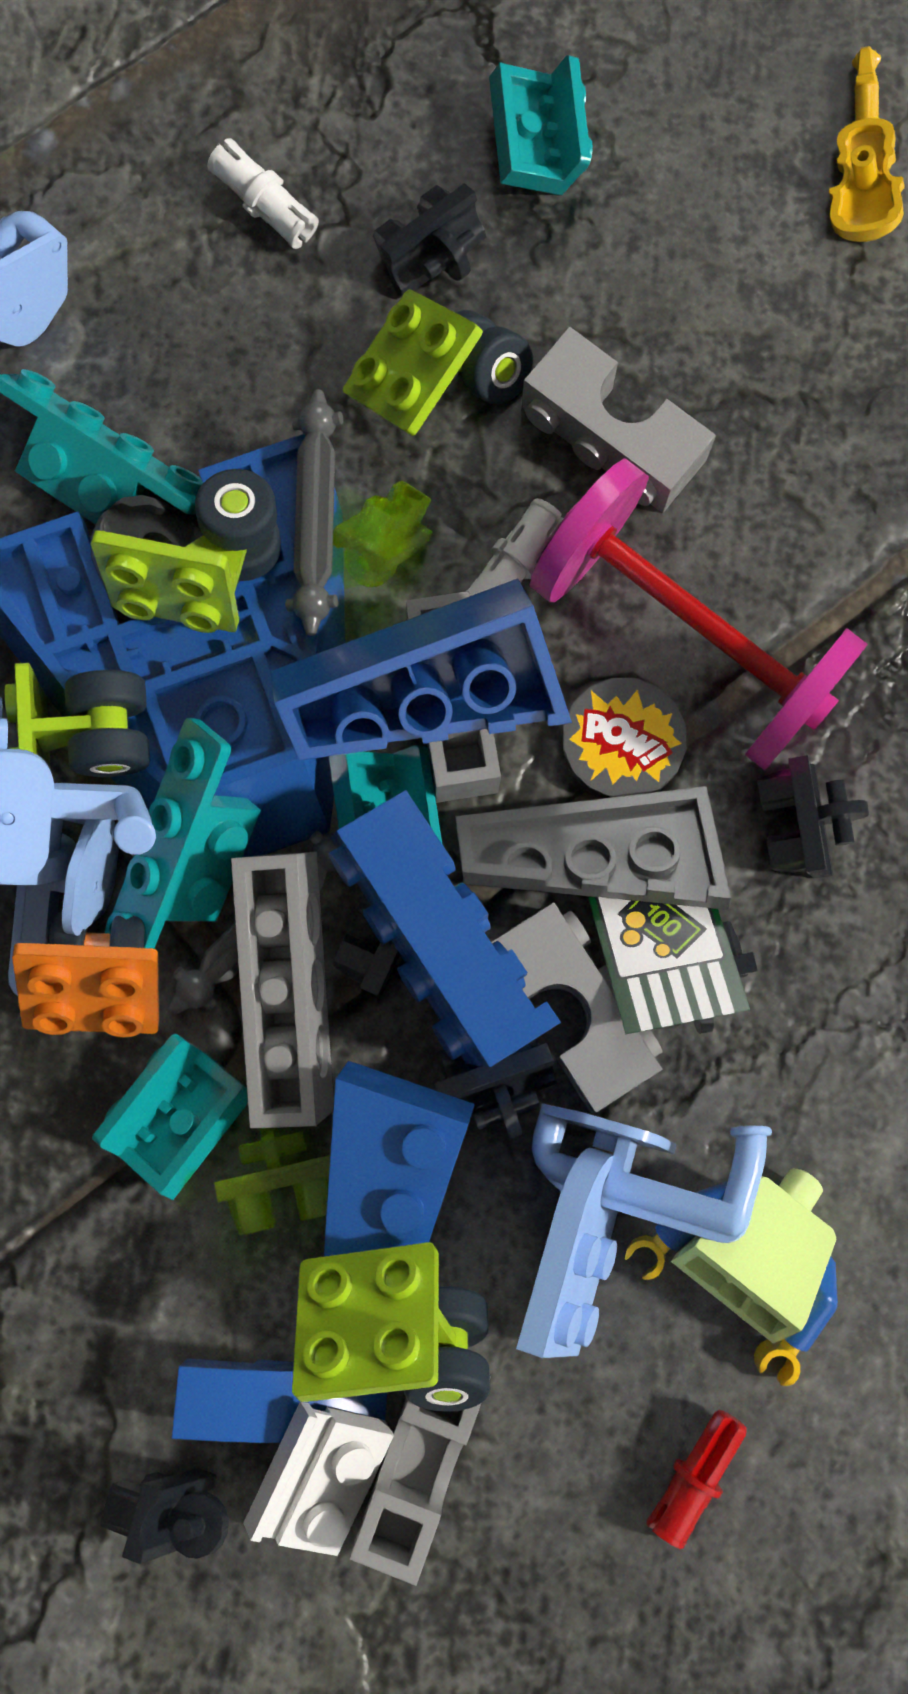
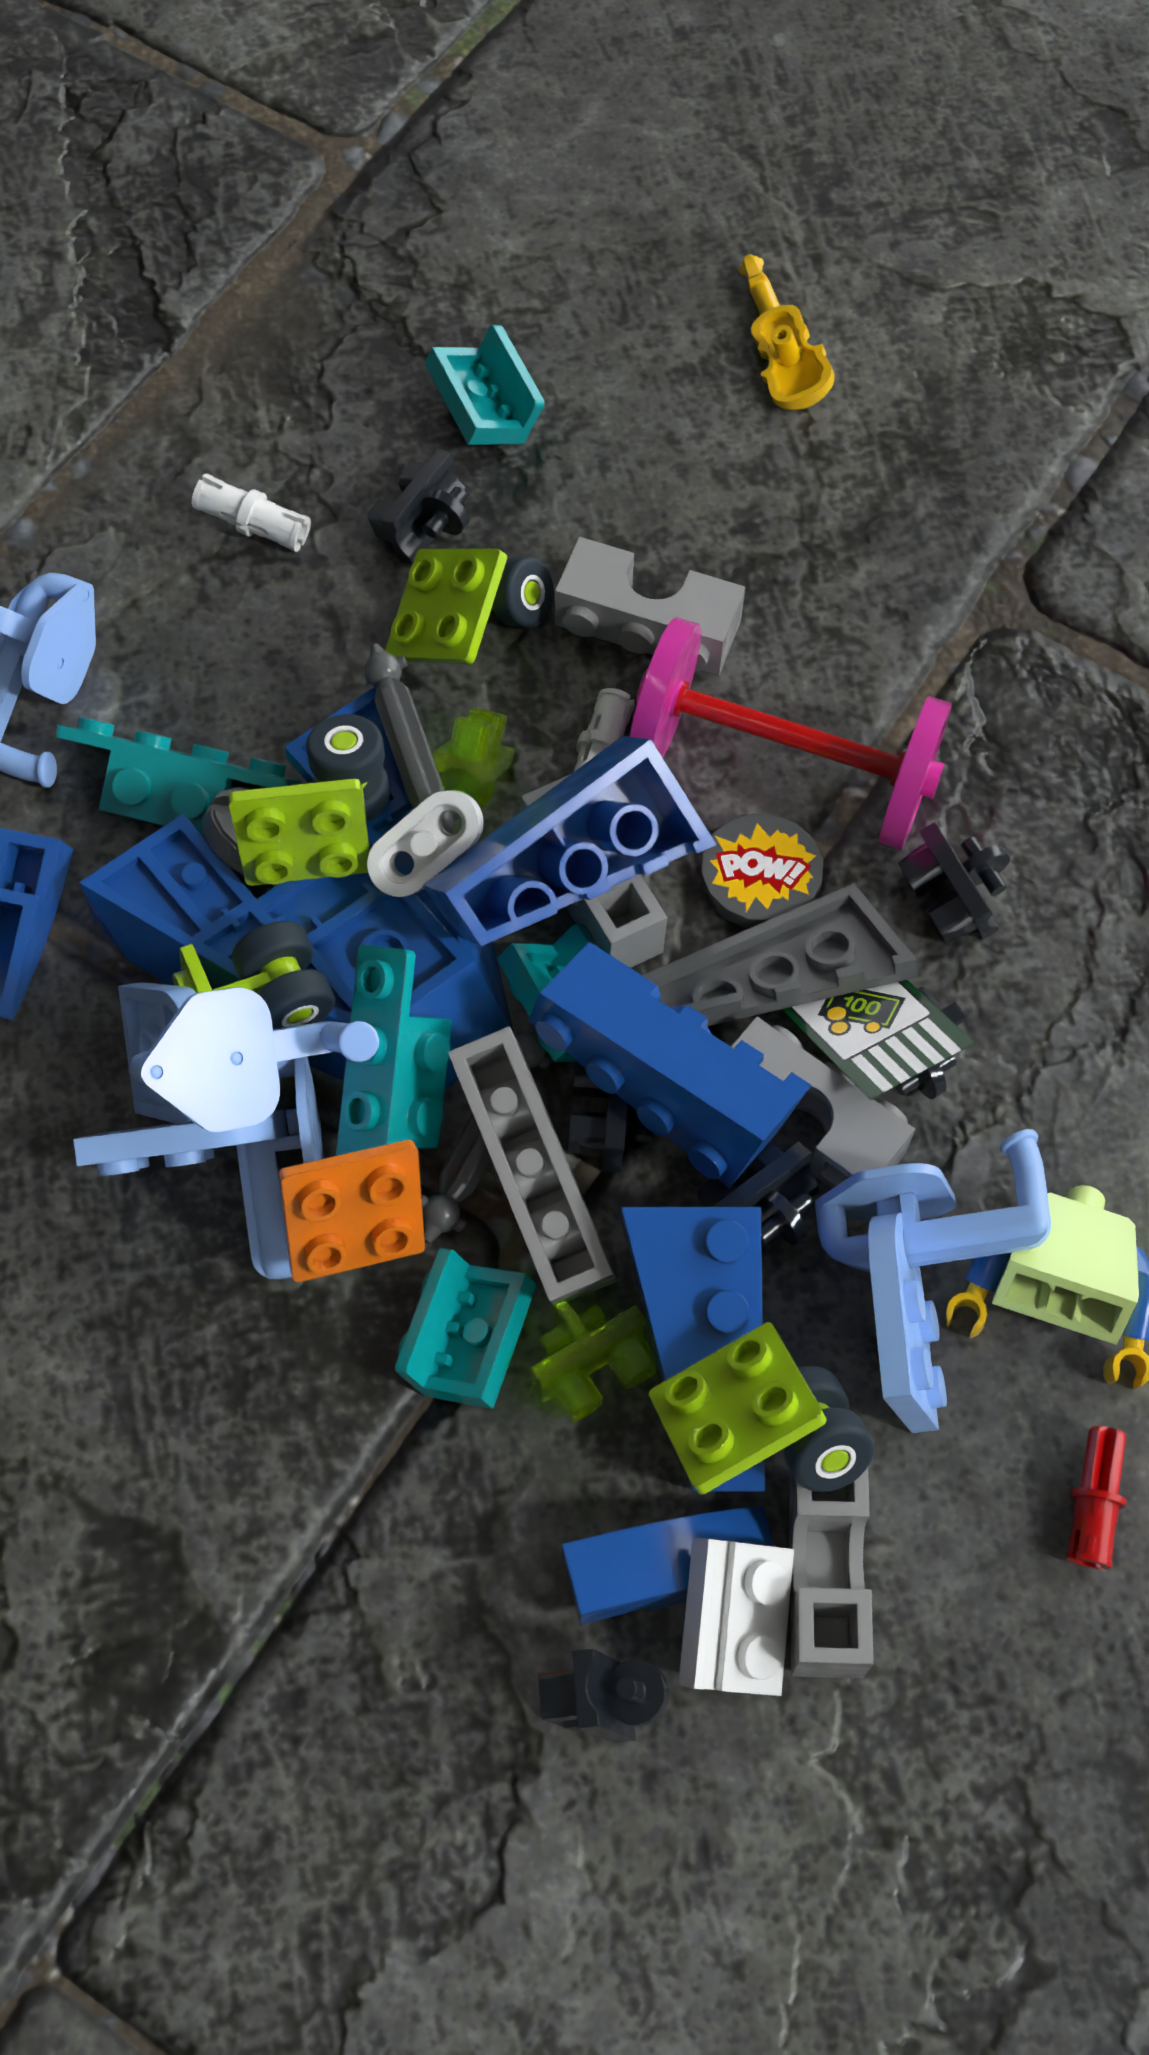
camera: 20 degrees left, 15 degrees down
(291, 626) = (426, 841): none -> white plate

